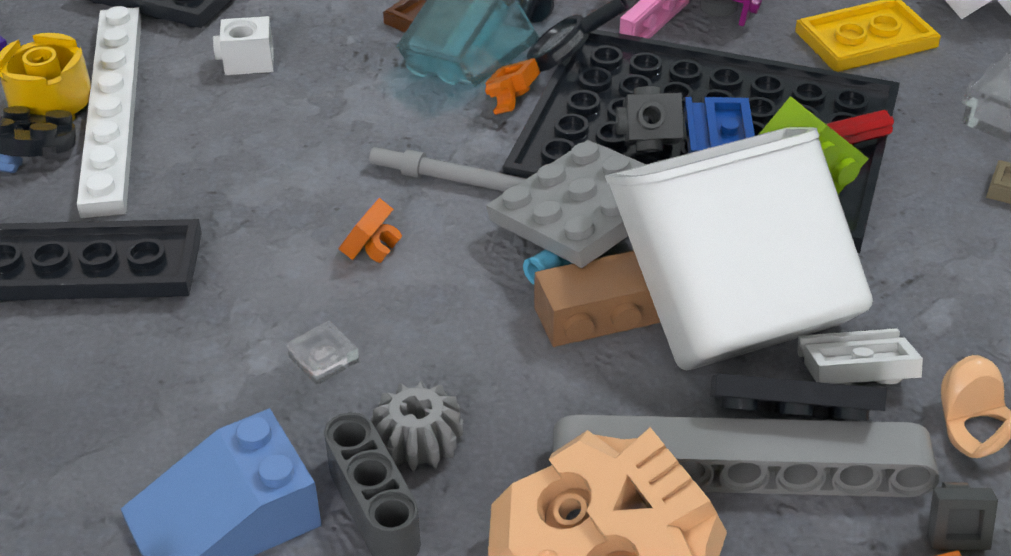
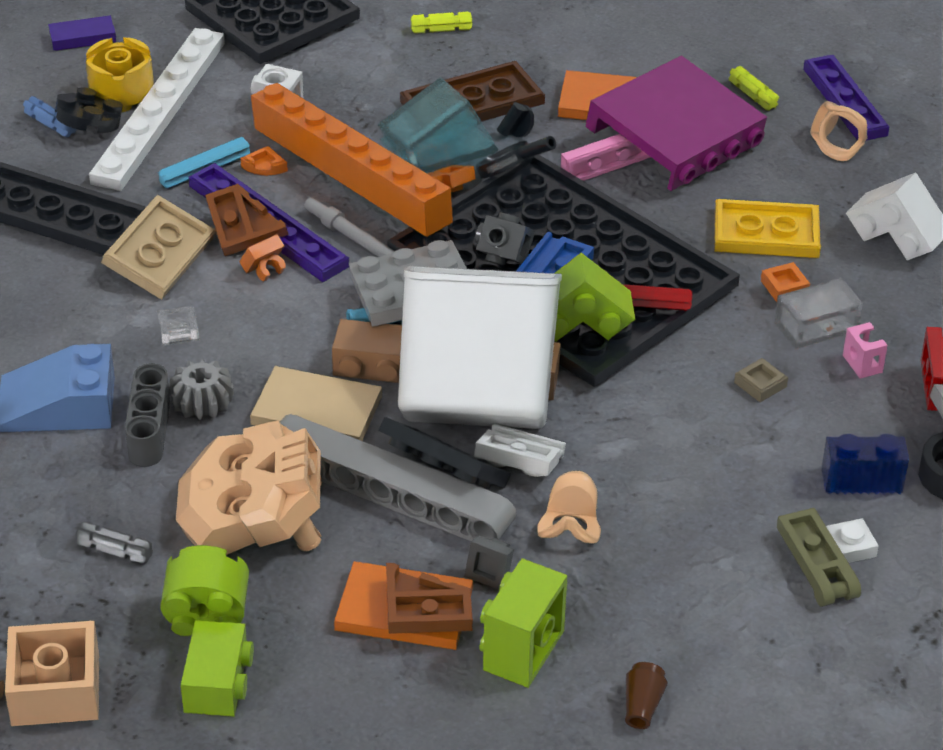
camera: 25 degrees right, 0 degrees up
(211, 149) = (220, 155): none -> medium azure axle
(230, 264) = (158, 247): none -> tan tile
(283, 128) = (264, 162): none -> orange tile
(312, 197) = (241, 220): none -> dark orange wing
(337, 191) = (300, 245): none -> dark purple tile
(399, 89) = (353, 159): none -> orange brick
(543, 387) = (318, 398): none -> tan tile
(943, 77) = (783, 279): none -> orange plate

